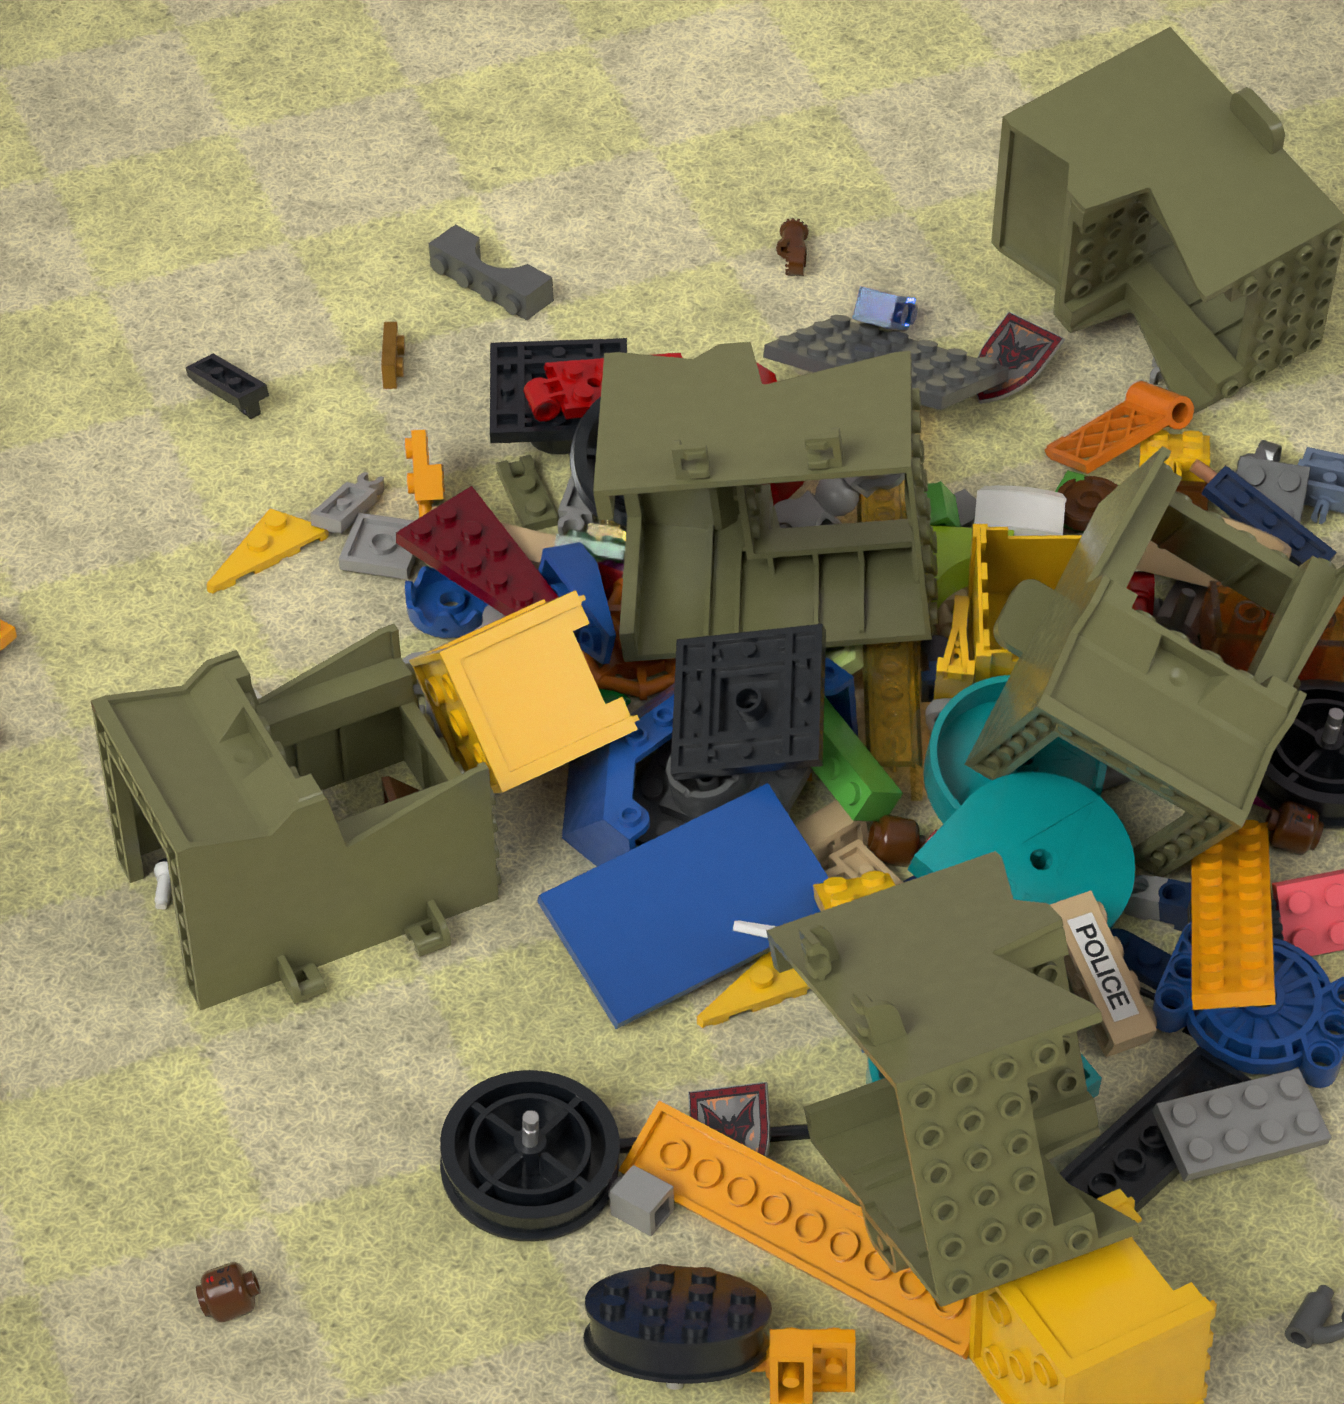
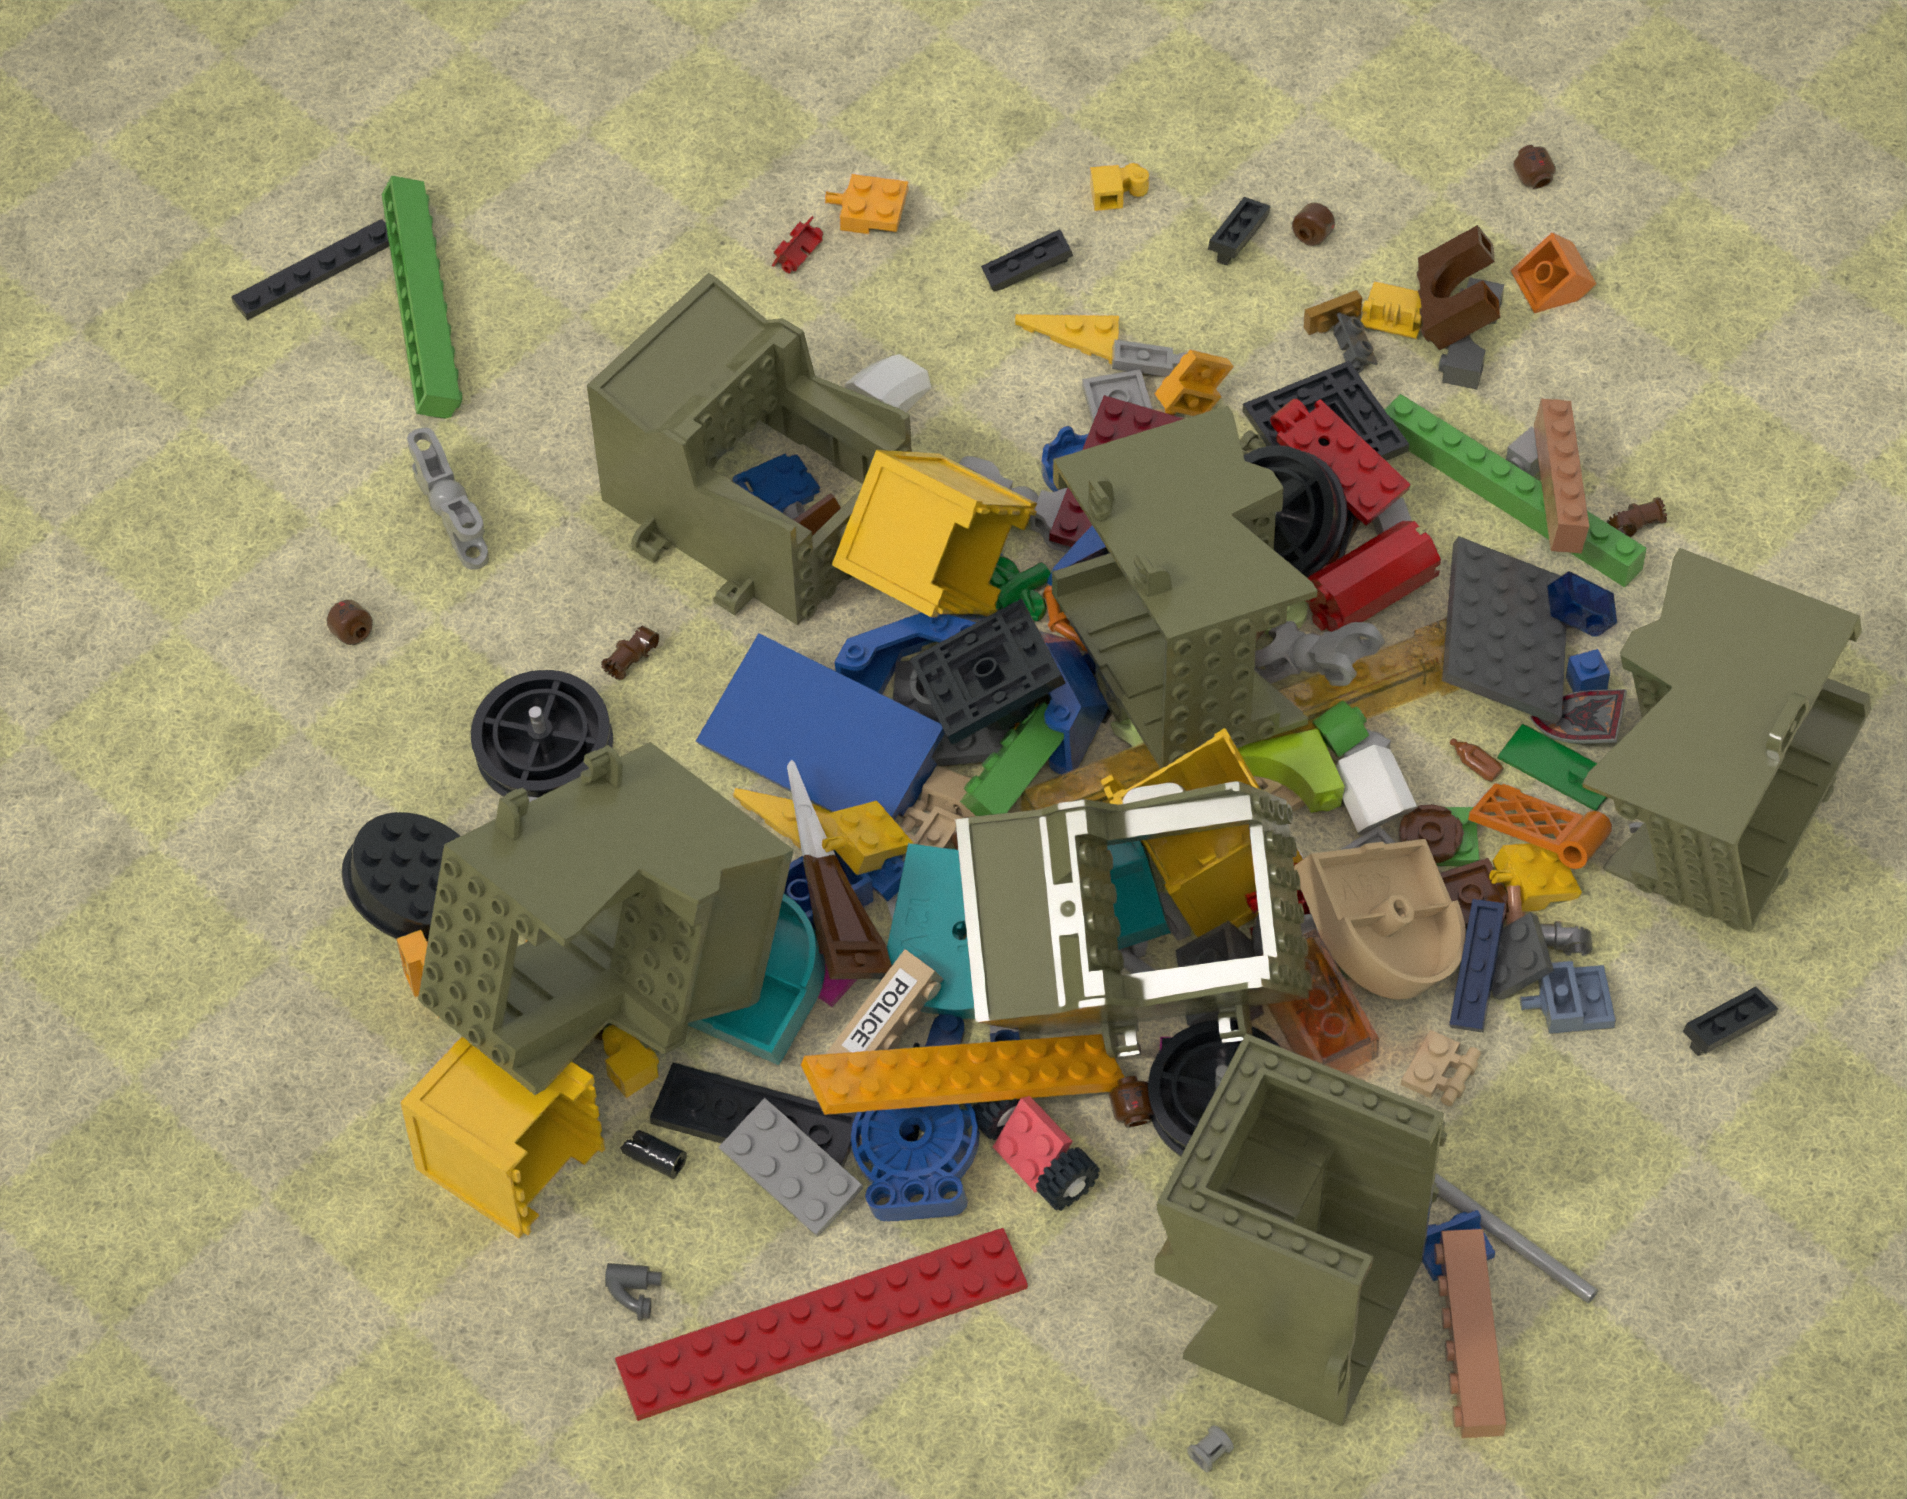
camera: 65 degrees right, 10 degrees up
(79, 1133) = (448, 498): none -> light grey piece
(94, 451) = (1111, 182): none -> yellow brick
(144, 548) = (1027, 260): none -> black hinge
(265, 329) = (1315, 222): none -> reddish brown head
(315, 162) = (1534, 166): none -> reddish brown head
(417, 315) = (1392, 310): none -> yellow hinge
(448, 1047) = (630, 652): none -> reddish brown connector
(452, 357) = (1353, 339): none -> dark grey hinge
(459, 196) = (1553, 274): none -> orange slope
(476, 271) = (1440, 271): none -> reddish brown arch
(667, 286) = (1524, 452): none -> light grey brick
(727, 303) = (1508, 487): none -> bright green brick
(740, 252) = (1561, 476): none -> nougat brick
(964, 333) = (1587, 672): none -> blue brick
(1009, 451) = (1477, 760): none -> dark orange piece
(1049, 403) = (1551, 765): none -> green piece
(1166, 1236) = (655, 1154): none -> black hinge

